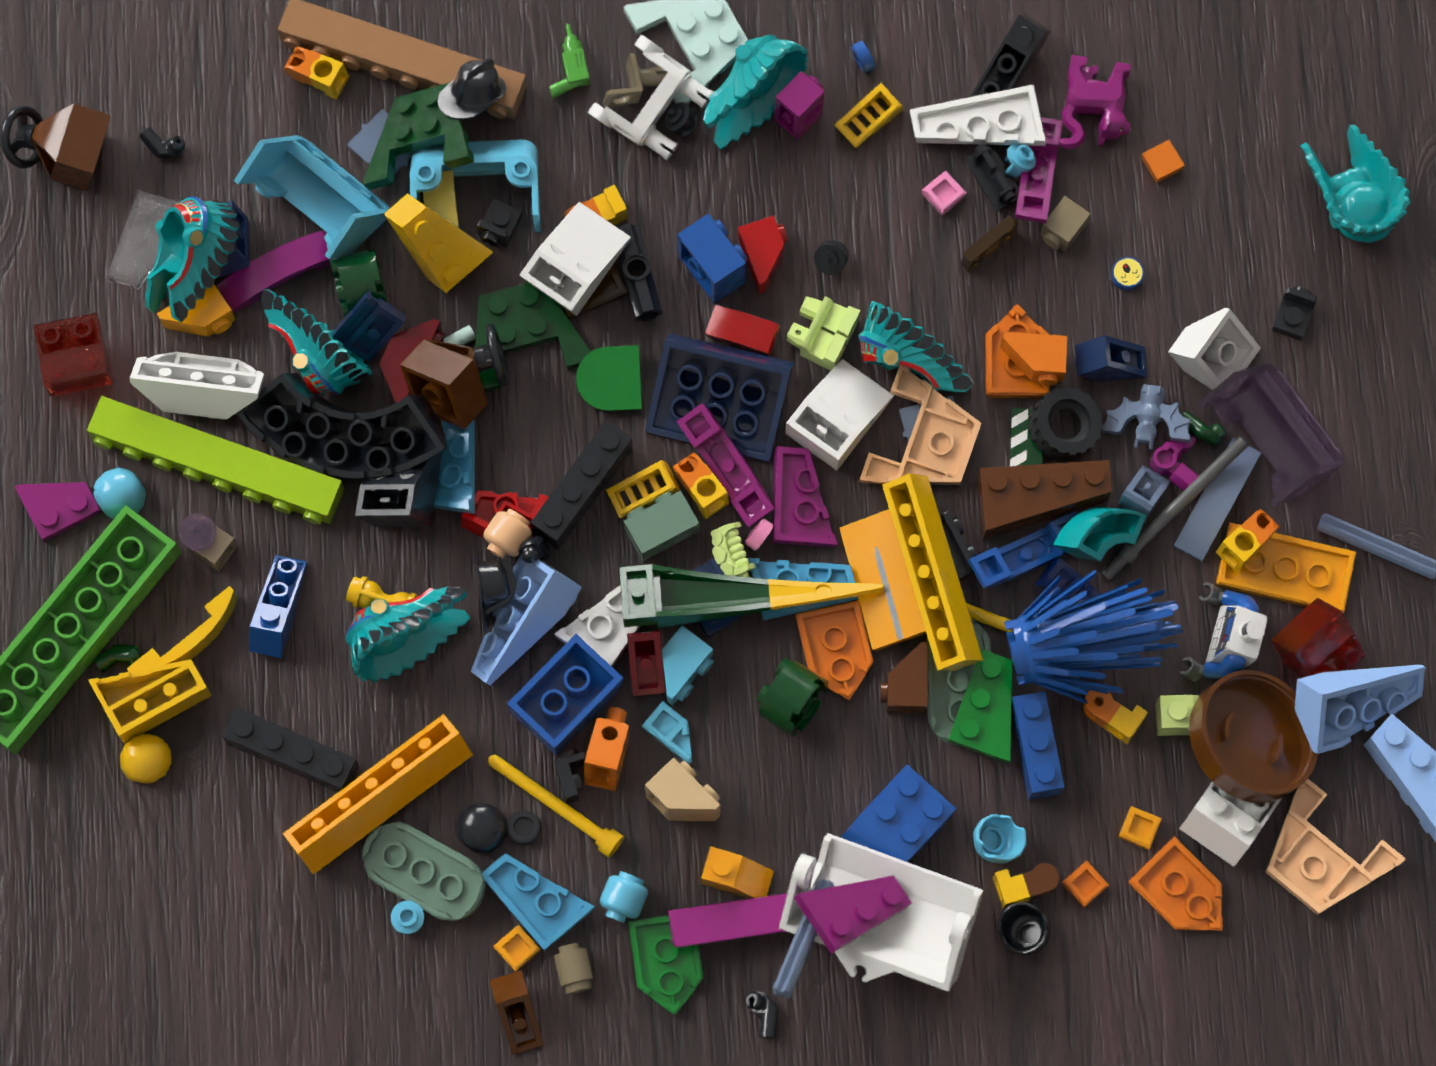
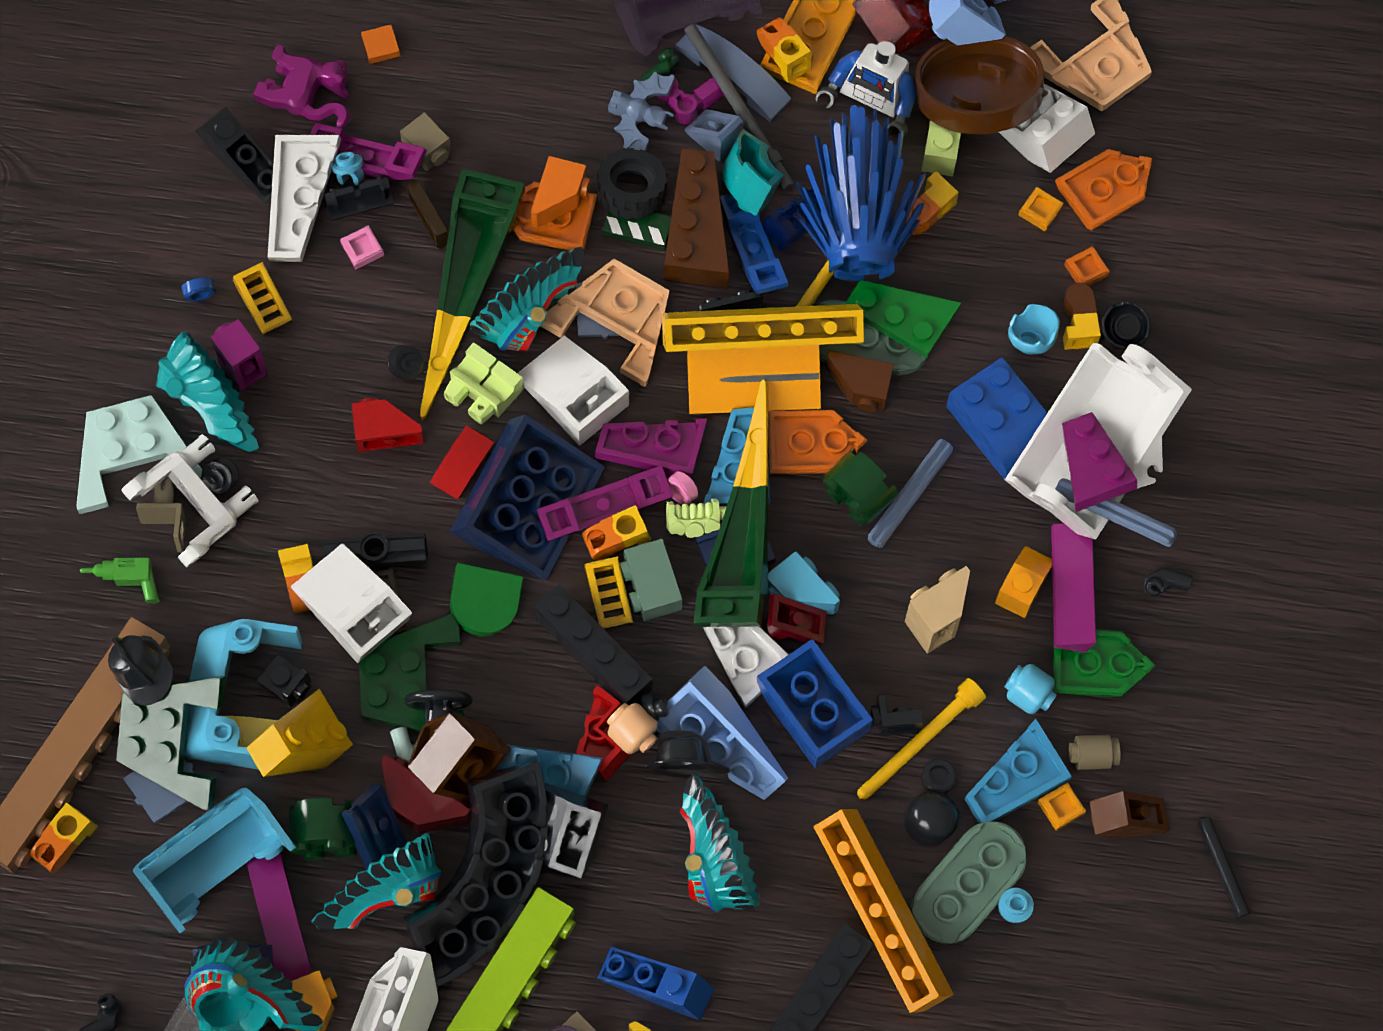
camera: 80 degrees left, 5 degrees down
(364, 592) = (665, 884): yellow piece -> none
(607, 750) = (879, 672): orange torso -> none
(670, 730) = (865, 615): medium azure tile -> none
(712, 257) = (383, 470): blue brick -> none
(803, 751) = (910, 493): none -> sand blue axle
(976, 292) = (478, 230): none -> dark green plate
(1036, 745) = (950, 276): blue brick -> none
(1110, 359) = (574, 132): dark blue slope -> none
(1127, 273) = (488, 100): tile -> none
(1214, 348) = (587, 39): white slope -> none

